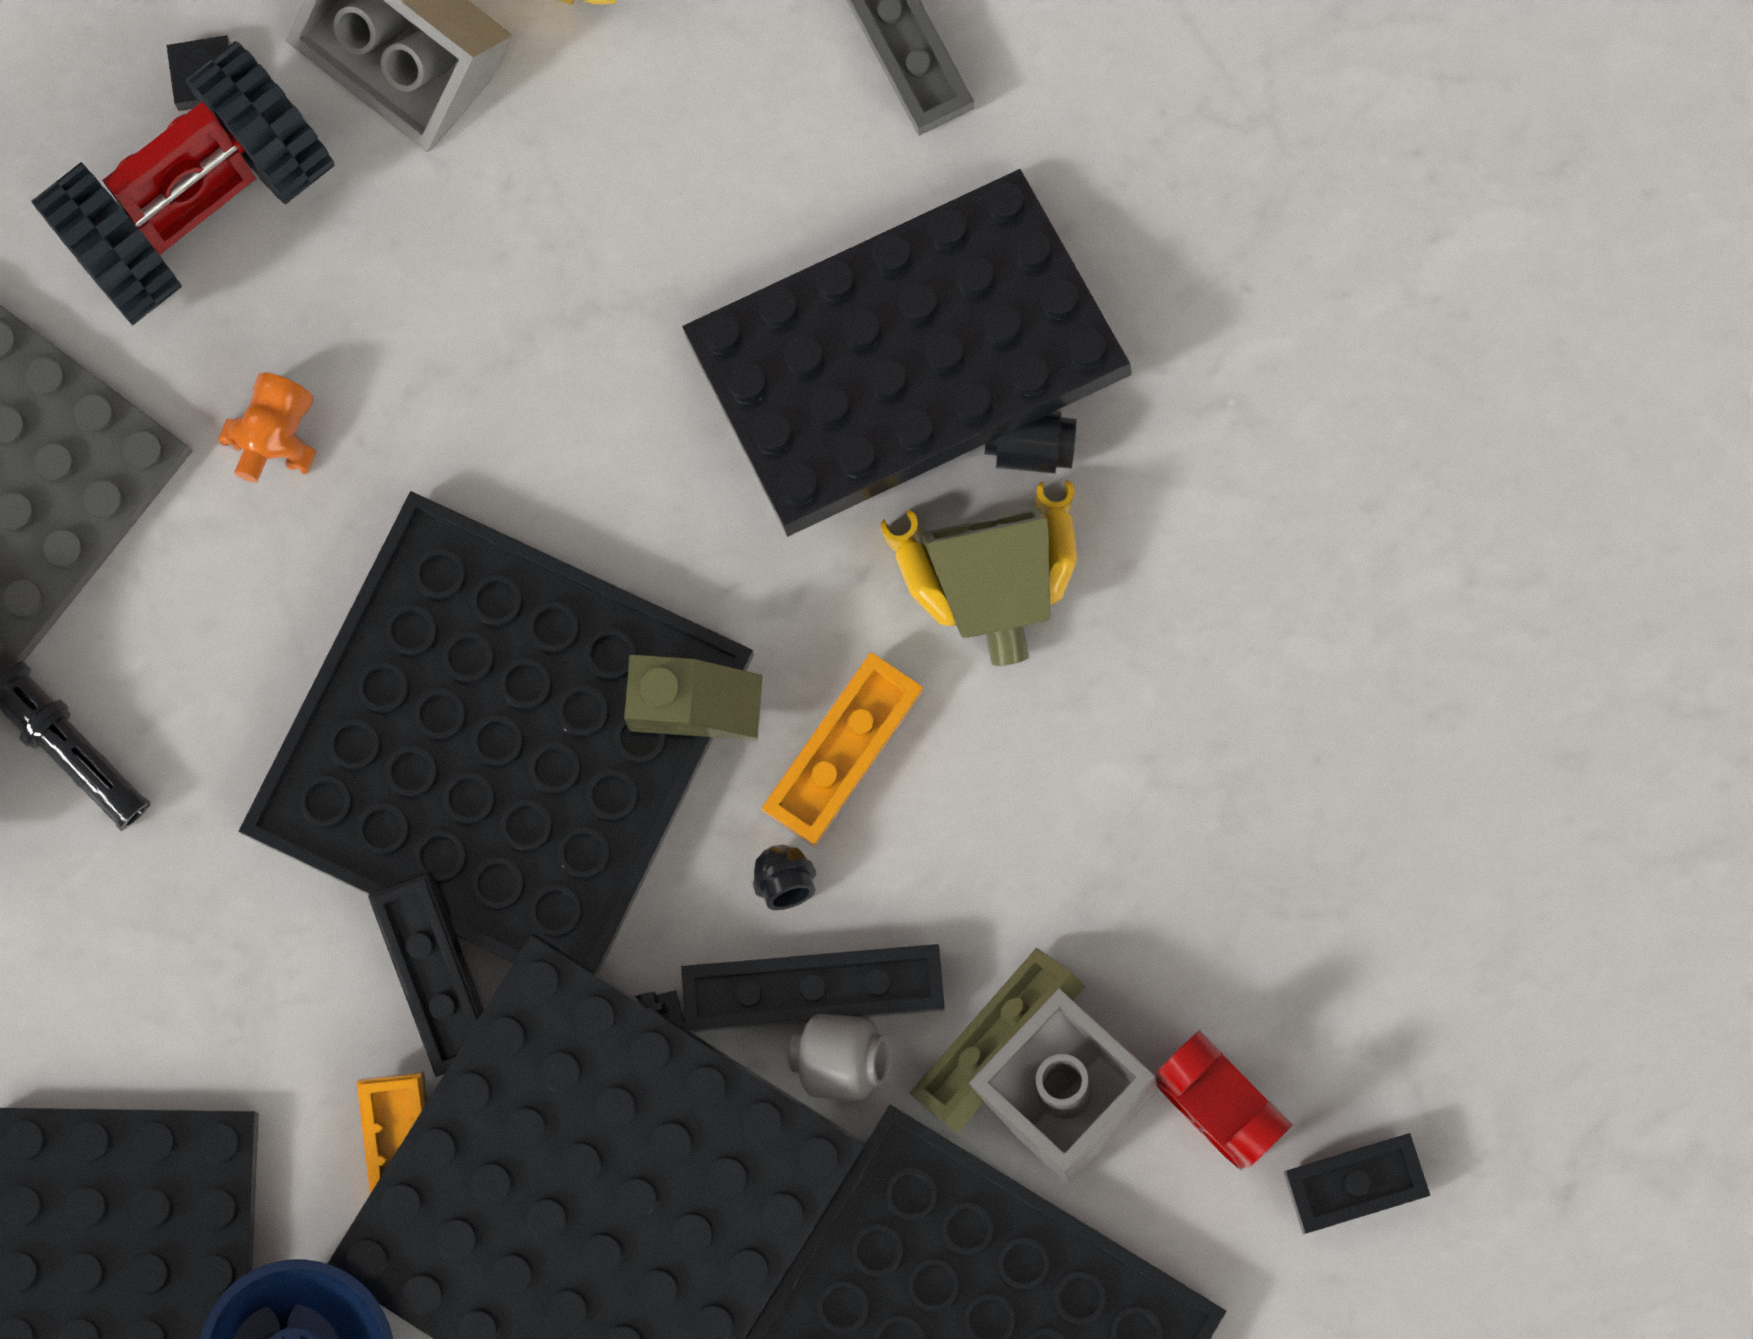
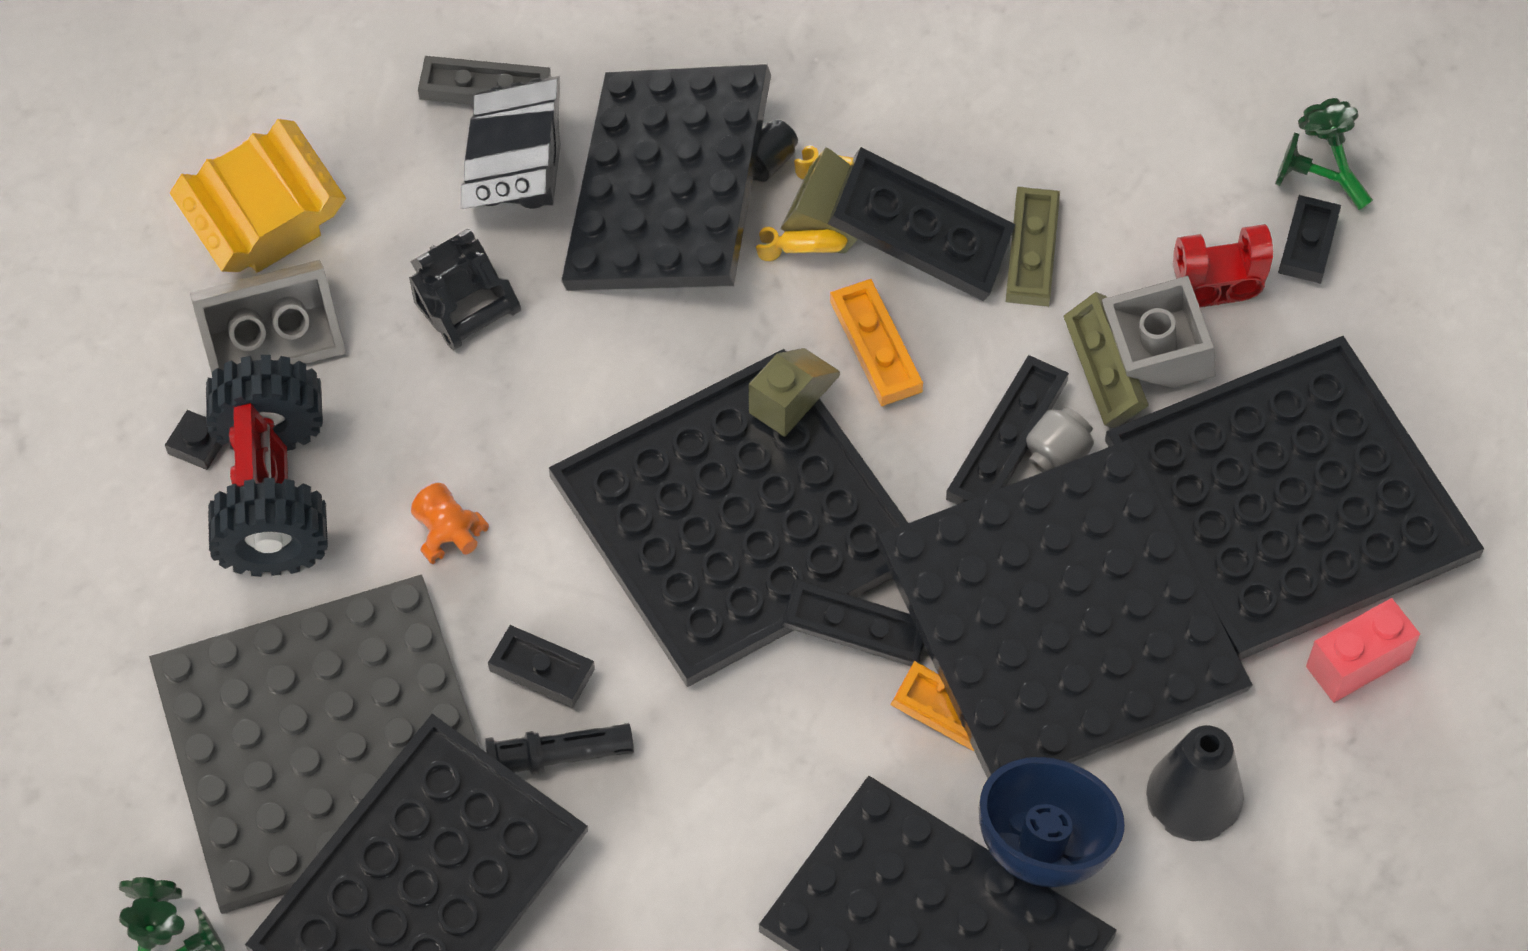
camera: 60 degrees left, 20 degrees down
(158, 657) = (541, 666): none -> black plate
(592, 199) = (452, 273): none -> black piece
(783, 877) = (930, 412): black plate -> none
(813, 144) = (513, 145): none -> slope
(1031, 700) = (921, 224): none -> black plate
(1120, 846) = (1033, 246): none -> olive tile
(1504, 1122) = (1328, 122): none -> dark green plant

